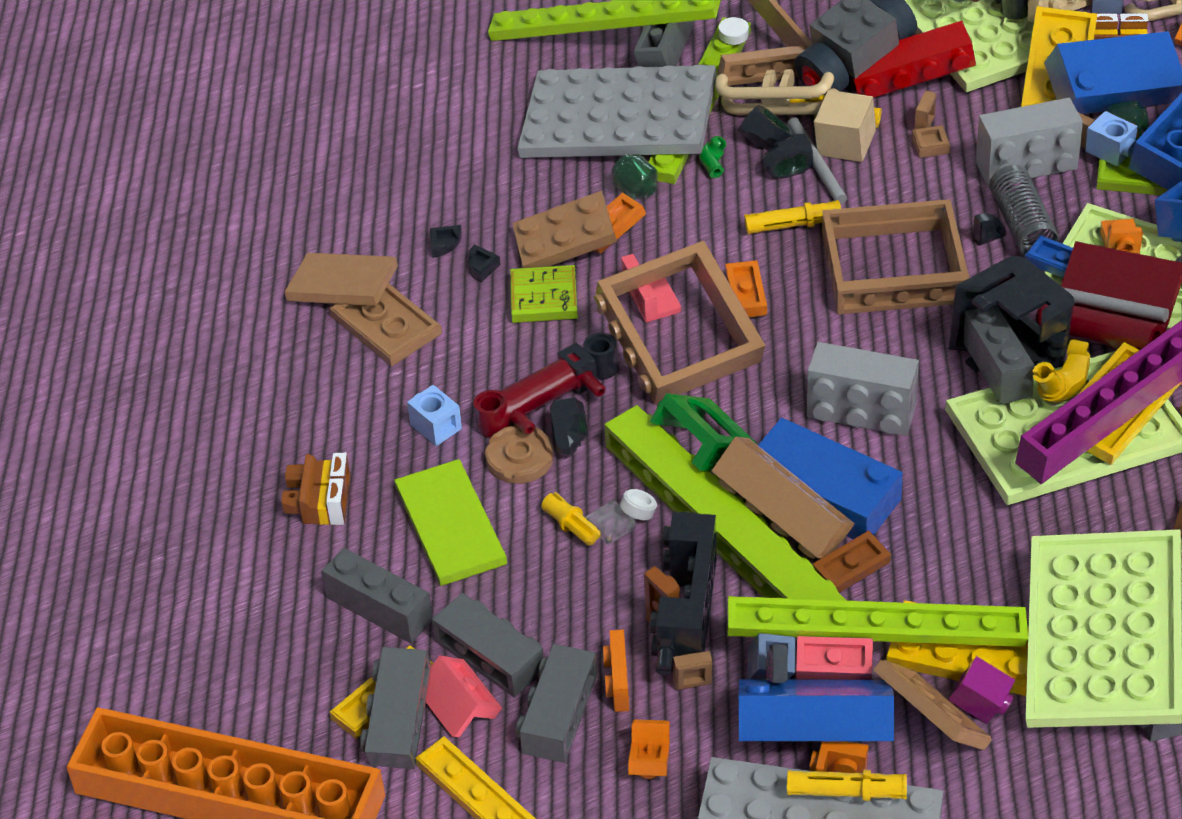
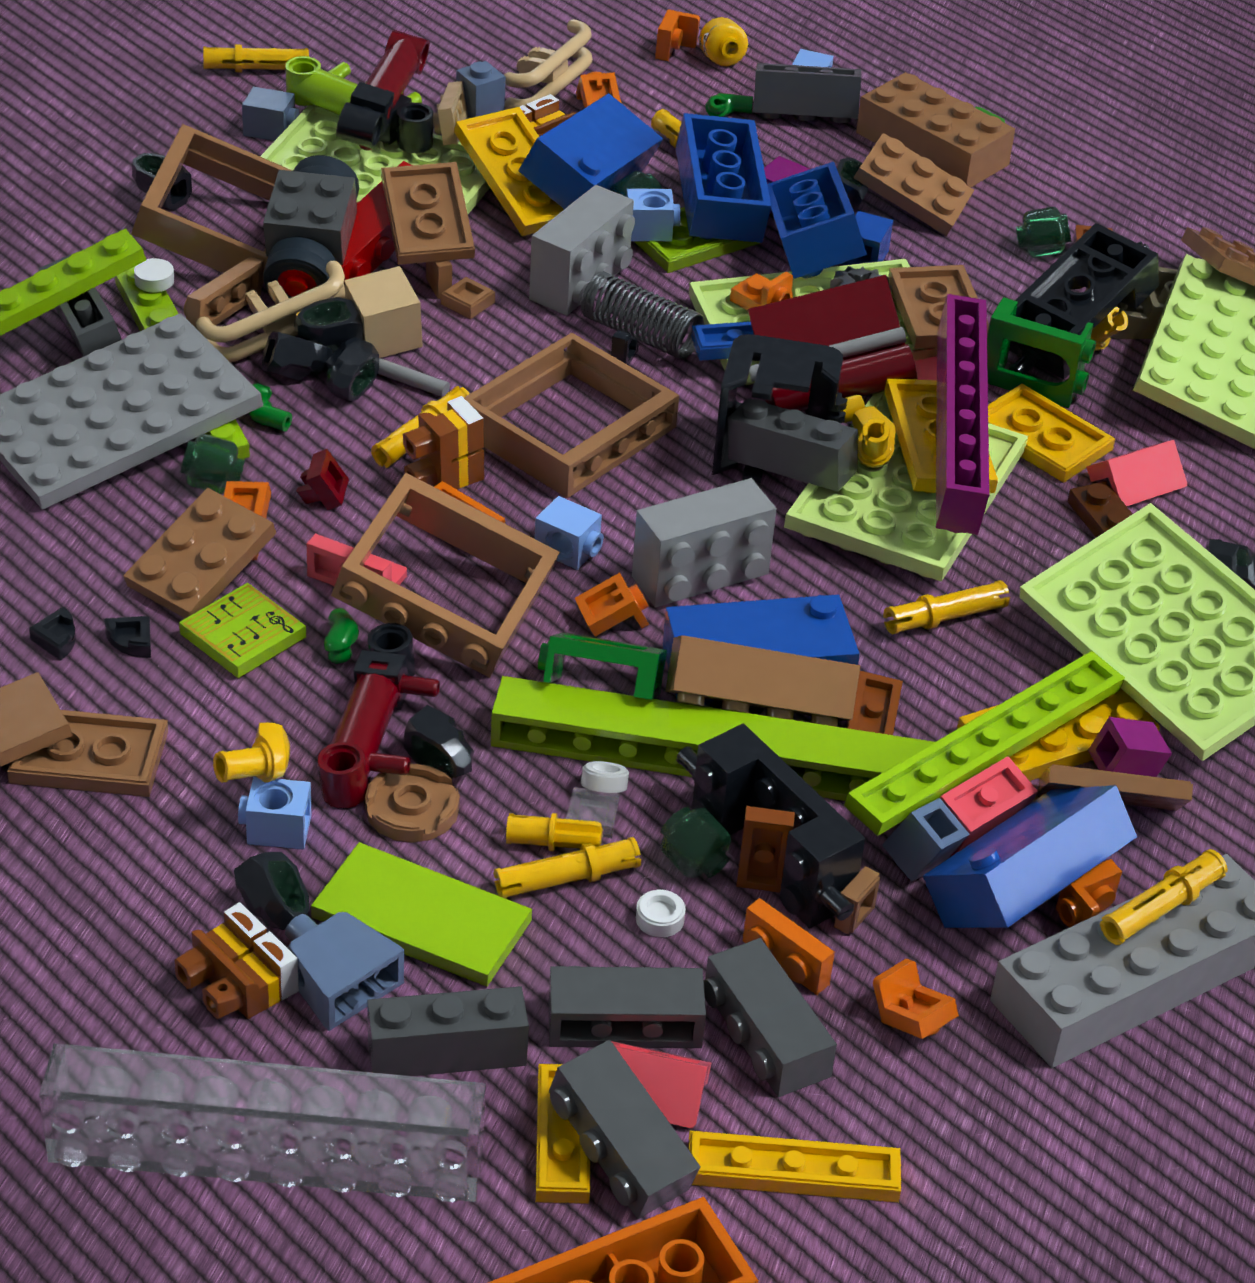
camera: 50 degrees left, 5 degrees down
(229, 584) = (263, 1122): none -> clear brick
(367, 522) = (343, 965): none -> sand blue torso
(381, 457) = (272, 888): none -> black rock
(445, 376) = (265, 759): none -> yellow arm
(567, 549) = (586, 863): none -> yellow pin
(579, 605) = (660, 913): none -> white tile
(588, 327) = (341, 636): none -> green arm
(631, 571) = (695, 842): none -> clear green head
(690, 223) = (323, 481): none -> dark red tile
(770, 397) = (611, 604): none -> orange bracket
(776, 664) = (967, 829): black tile -> none
(779, 241) = (447, 446): none -> dark orange hips
(796, 335) = (570, 530): none -> light blue brick
(797, 115) = (329, 322): none -> black rock
(939, 66) = (427, 213): none -> medium nougat tile
(976, 521) = (931, 610): none -> yellow pin

